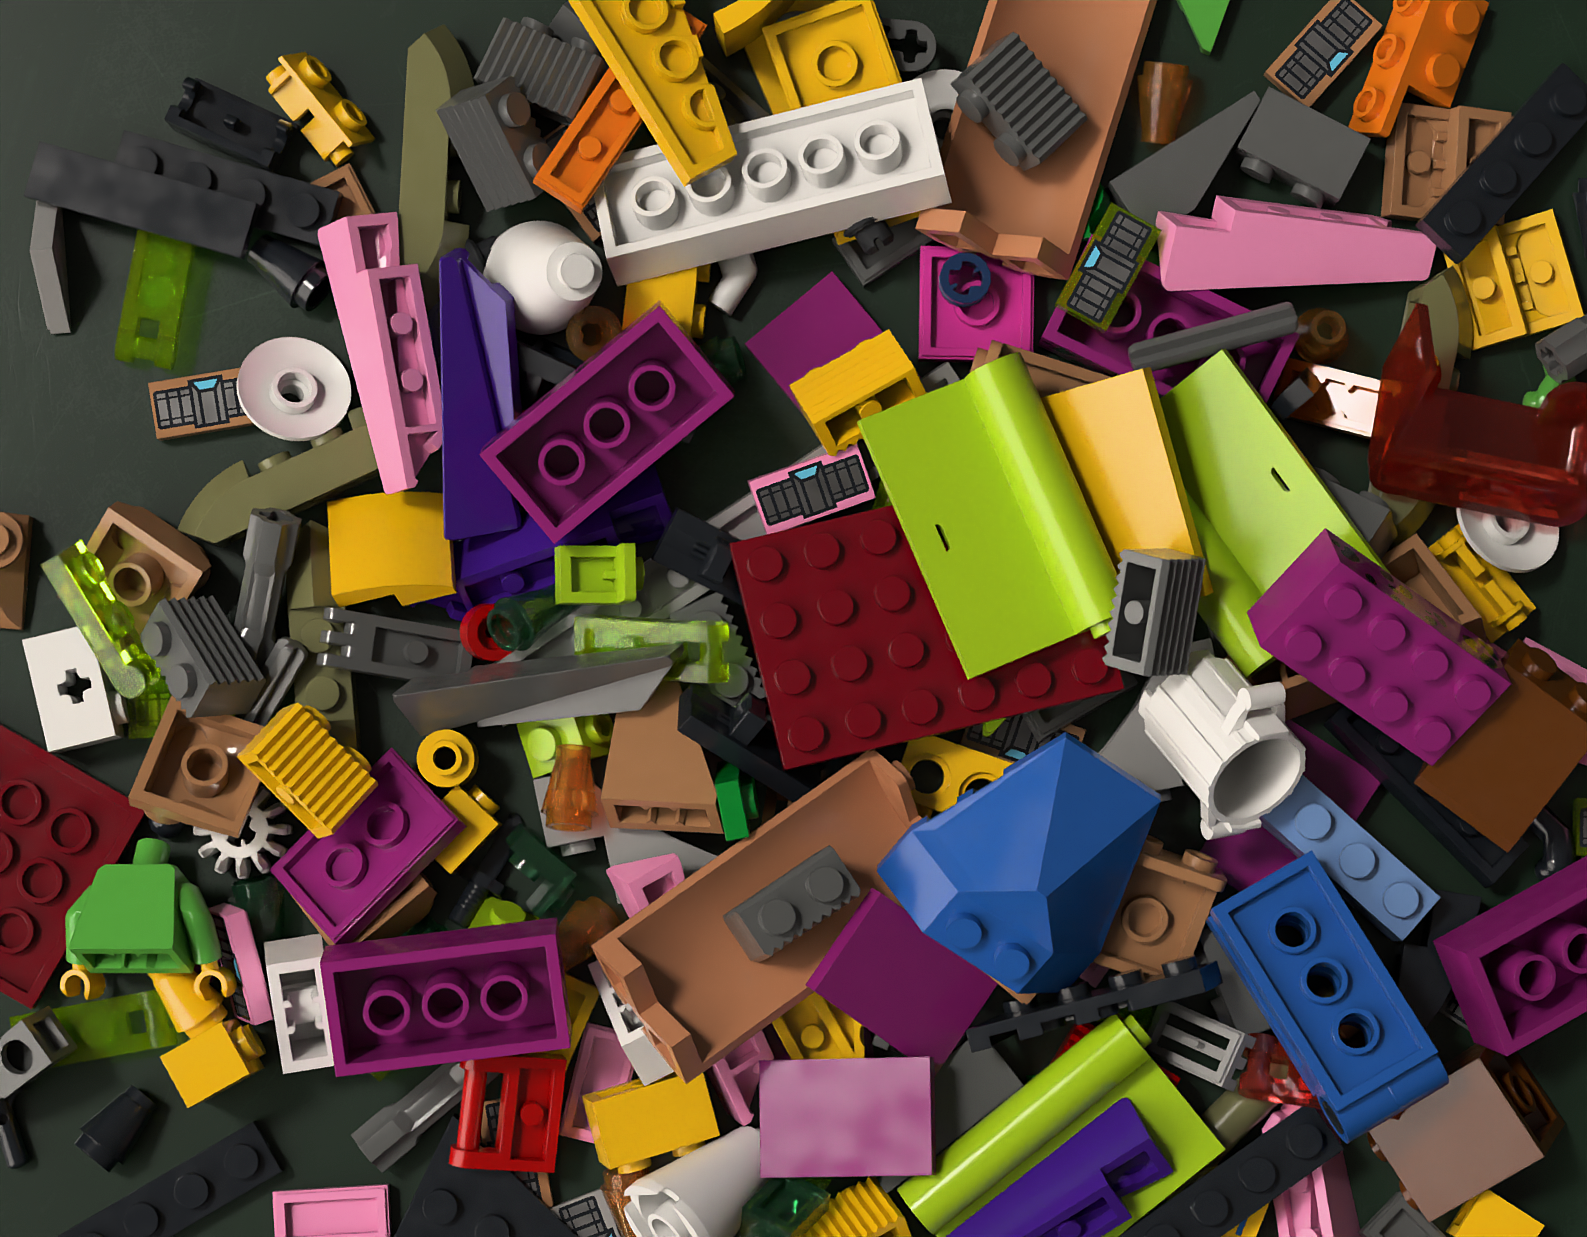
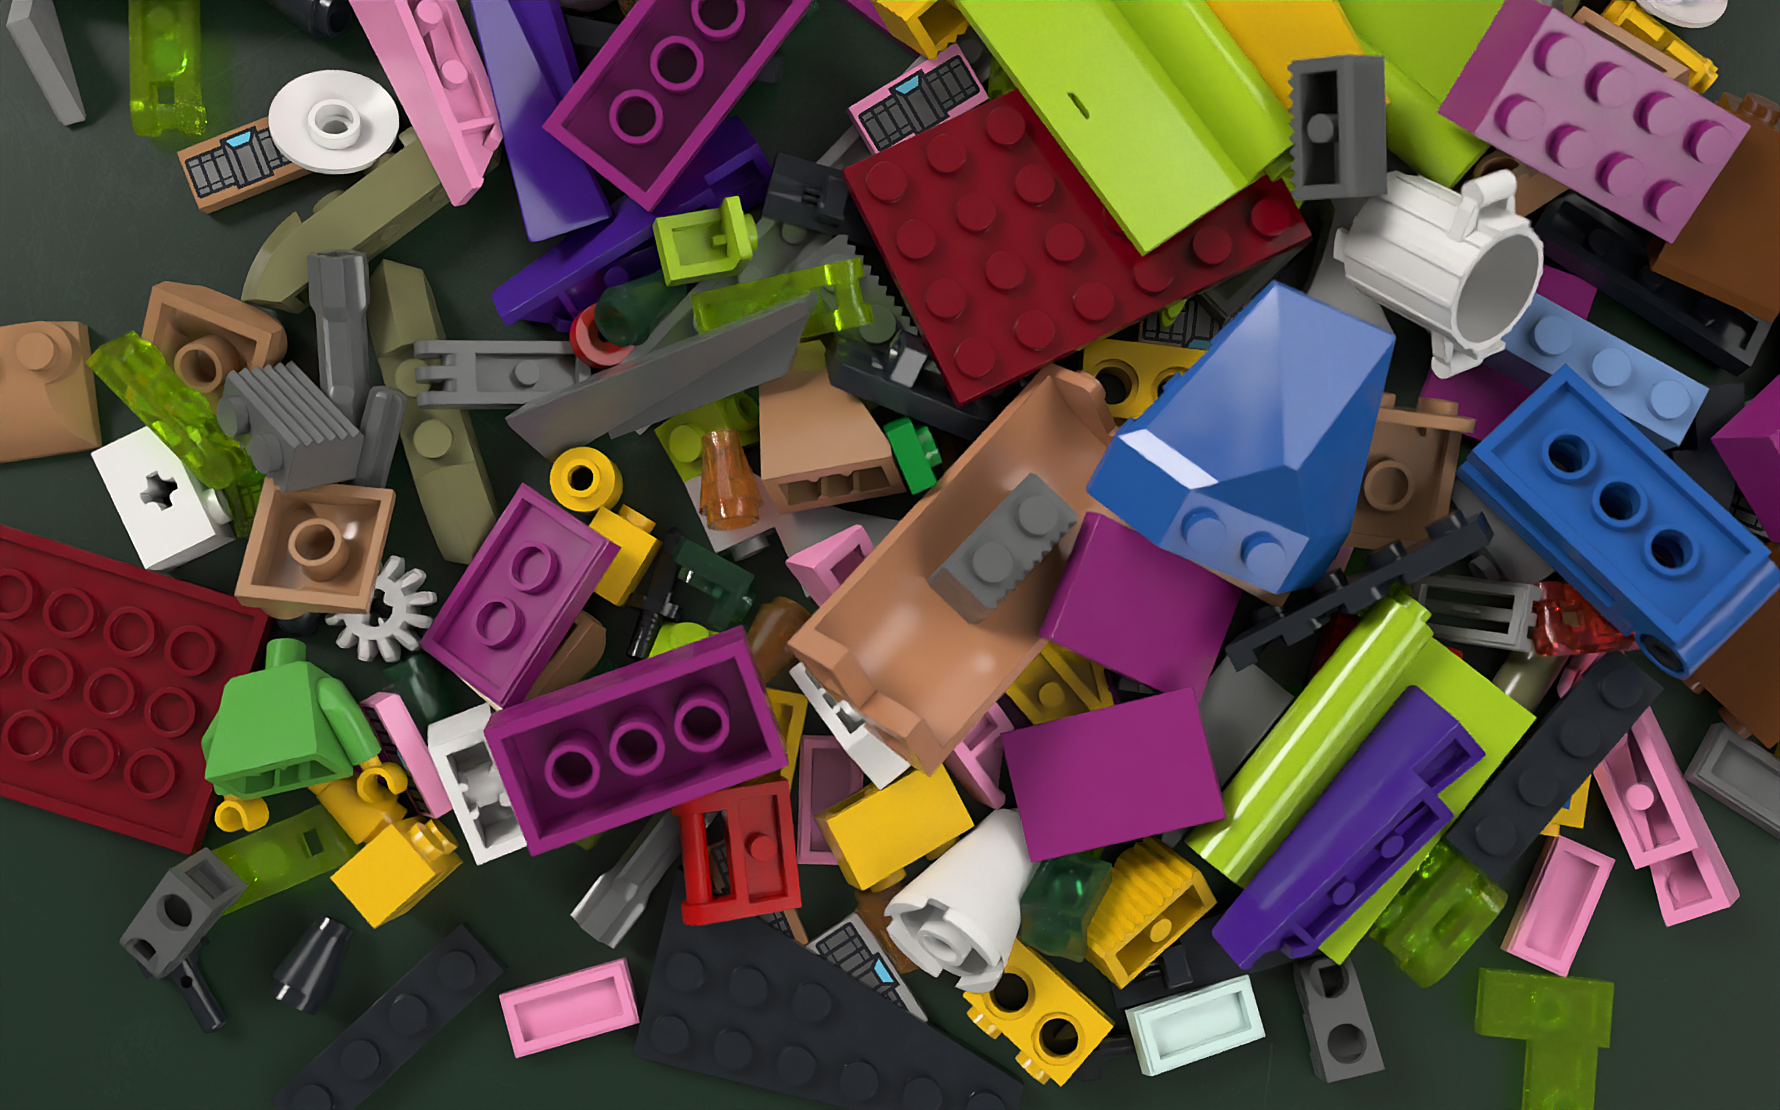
camera: 15 degrees left, 0 degrees up
(309, 768) = (431, 520): yellow brick -> none
(389, 547) = (473, 266): yellow slope -> none

